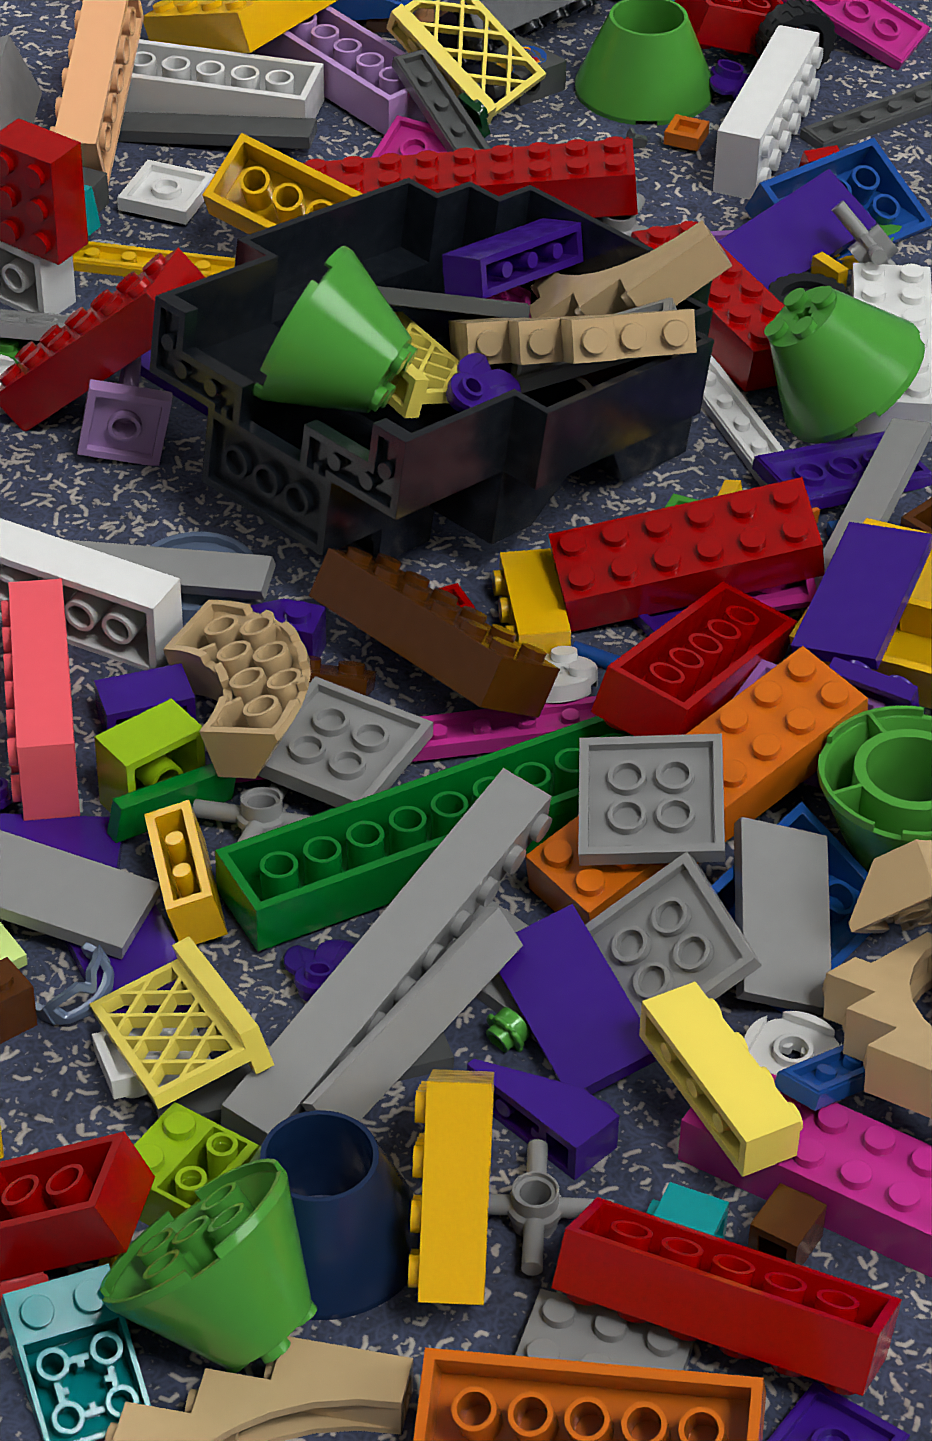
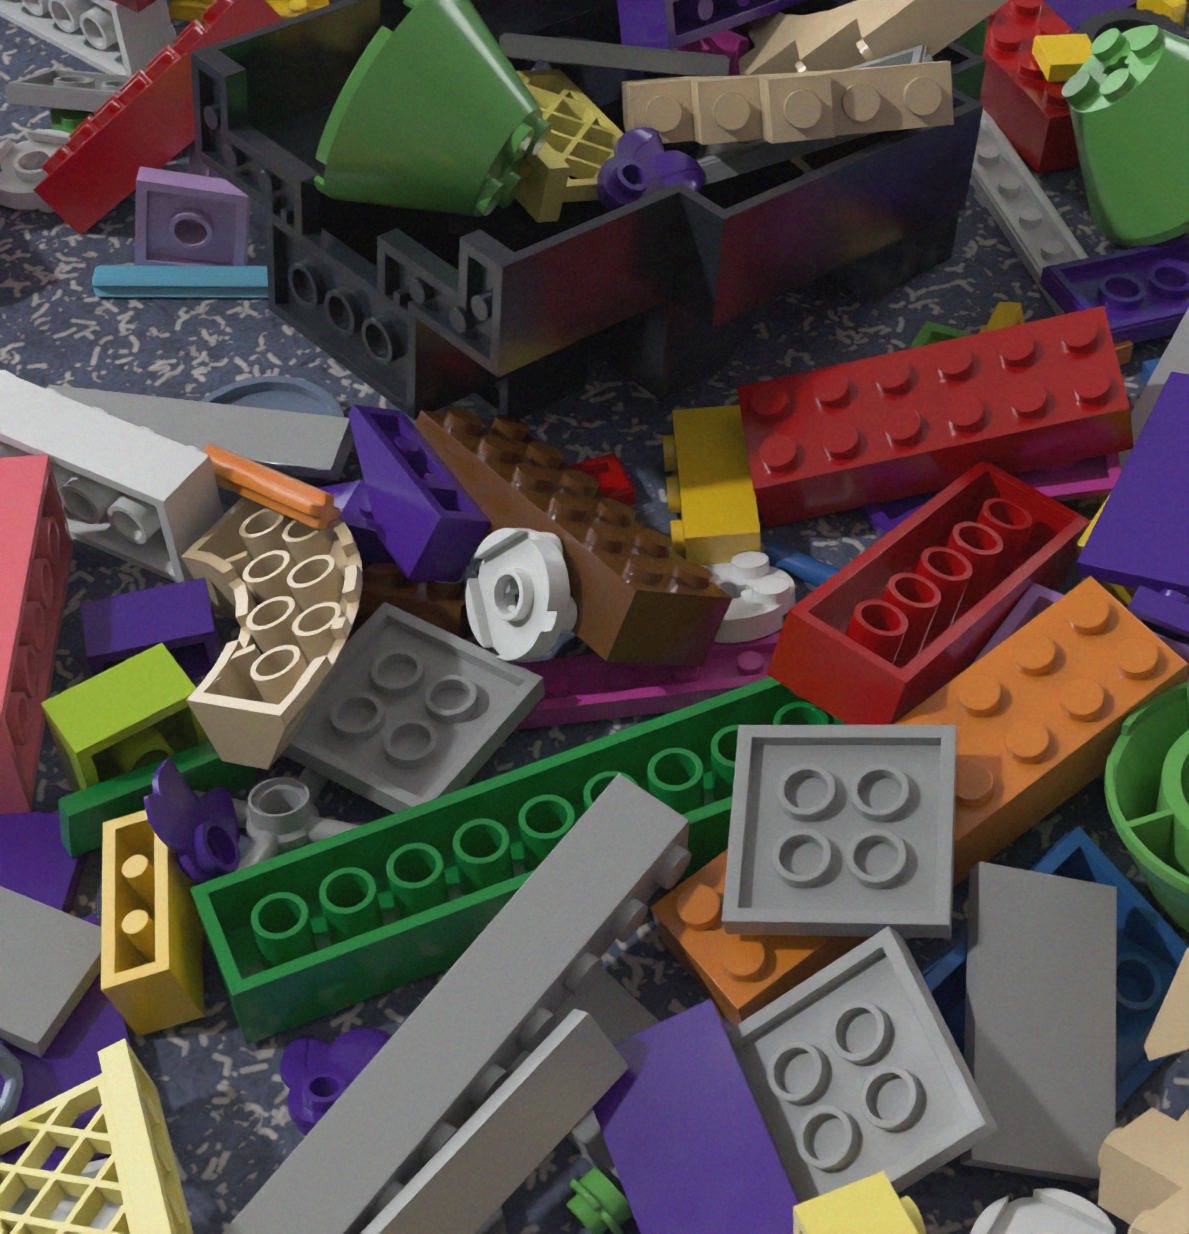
camera: 10 degrees right, 5 degrees up
(124, 465) = (180, 281): none -> medium azure axle
(212, 814) = (196, 828): none -> dark purple plate
(230, 602) = (272, 488): none -> orange axle
(331, 608) = (414, 498): none -> dark purple slope
(434, 666) = (535, 568): none -> white plate
(760, 307) = (1061, 55): none -> yellow tile

